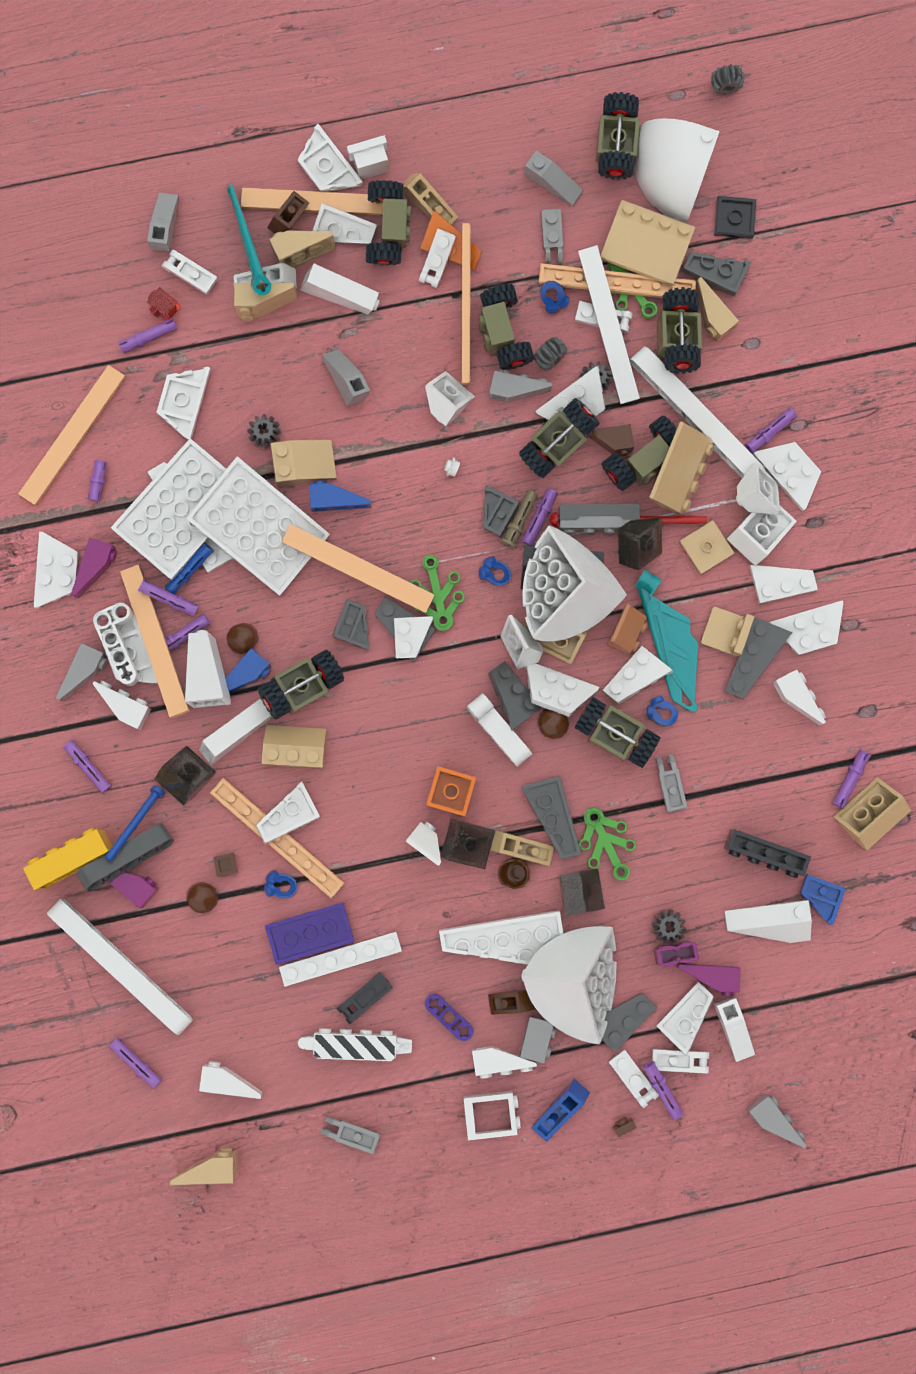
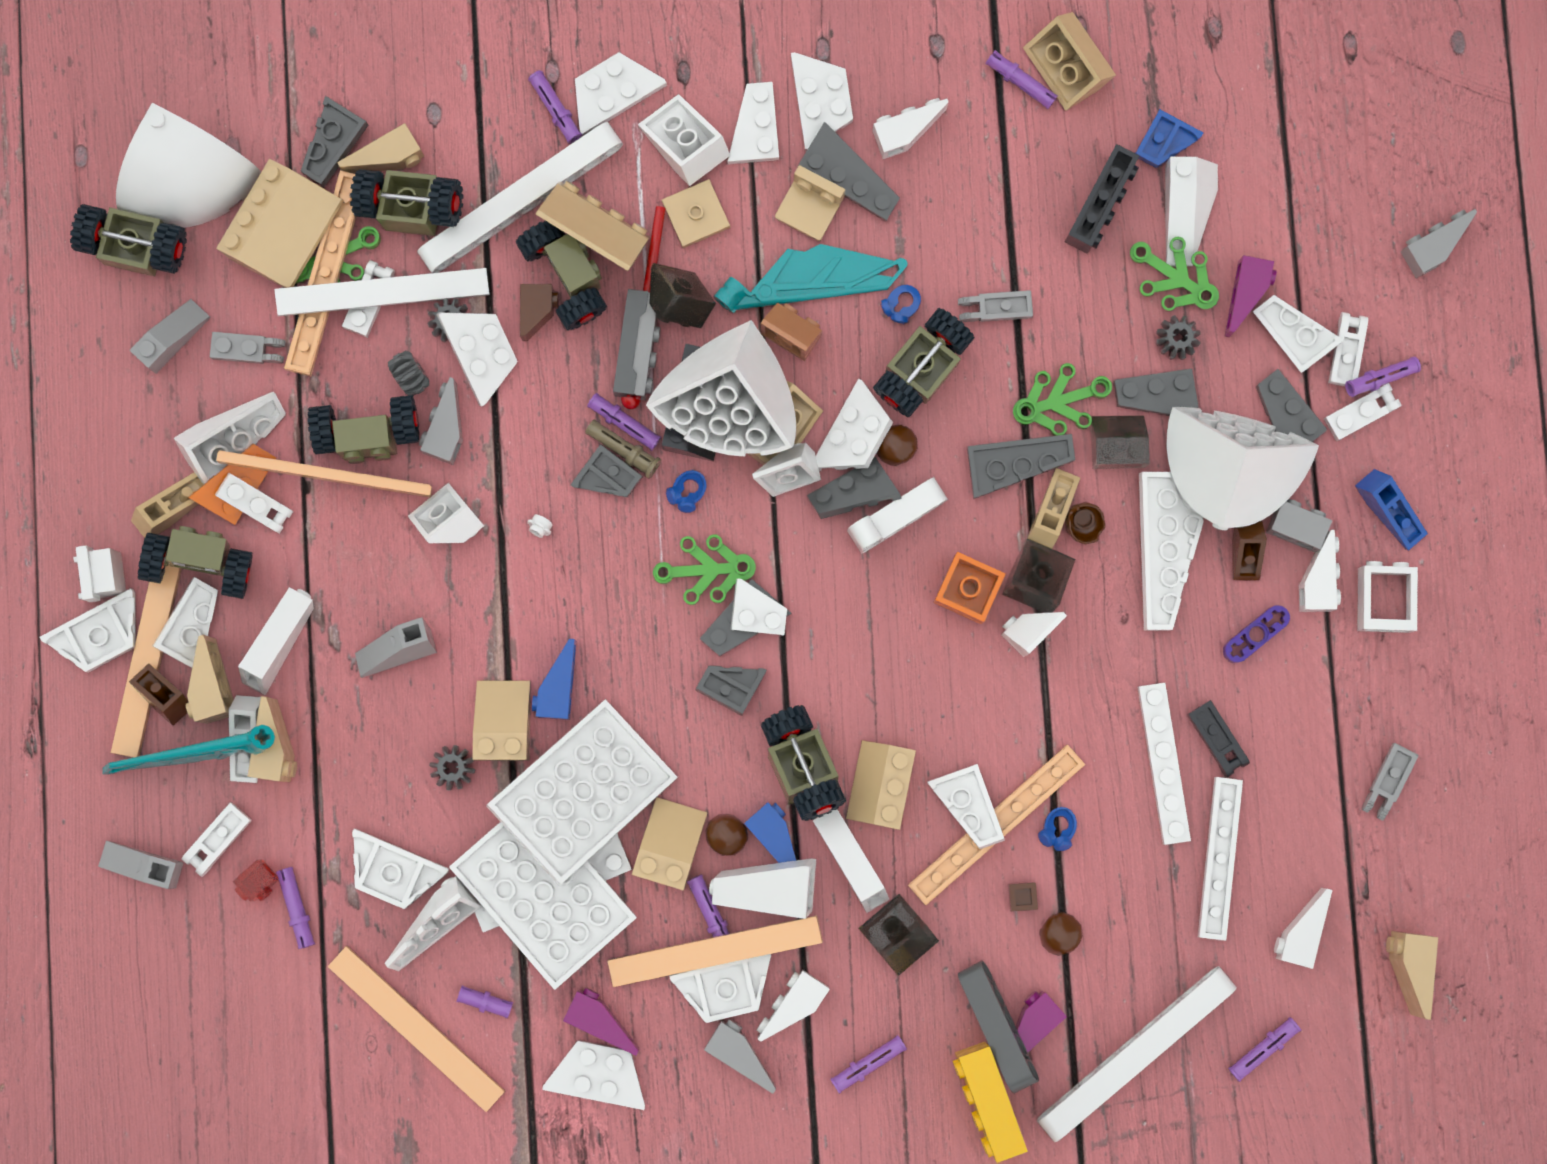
camera: 80 degrees left, 0 degrees up
(119, 646) = (716, 998): white beam -> none
(154, 438) = (440, 915): none -> white wedge
(156, 792) = (916, 976): blue bar -> none
(171, 599) = (665, 916): medium lavender pin -> none
(187, 571) = (624, 891): blue pin -> none
(229, 597) = (669, 843): none -> tan slope
(273, 1010) = (1220, 858): none -> white plate
(309, 933) = (1126, 798): dark purple plate -> none
(355, 1046) = (1278, 758): white hinge -> none
(358, 568) = (658, 667): light nougat tile -> none
(486, 232) = (228, 432): none -> white wedge
(553, 306) = (342, 364): blue piece -> none
(559, 437) = (525, 378): brick -> none
(624, 917) = (1157, 392): none -> dark grey wing
(624, 1126) = (1422, 432): reddish brown plate -> none
(636, 674) = (849, 328): white wing -> none
(681, 952) = (1216, 340): magenta brick -> none
(715, 920) = (1178, 277): none -> bright green plant
(727, 79) = (74, 85): dark grey gear -> none
(734, 1028) = (1315, 275): white slope -> none
(735, 217) = (261, 107): black tile -> none
(758, 491) = (635, 134): white slope -> none

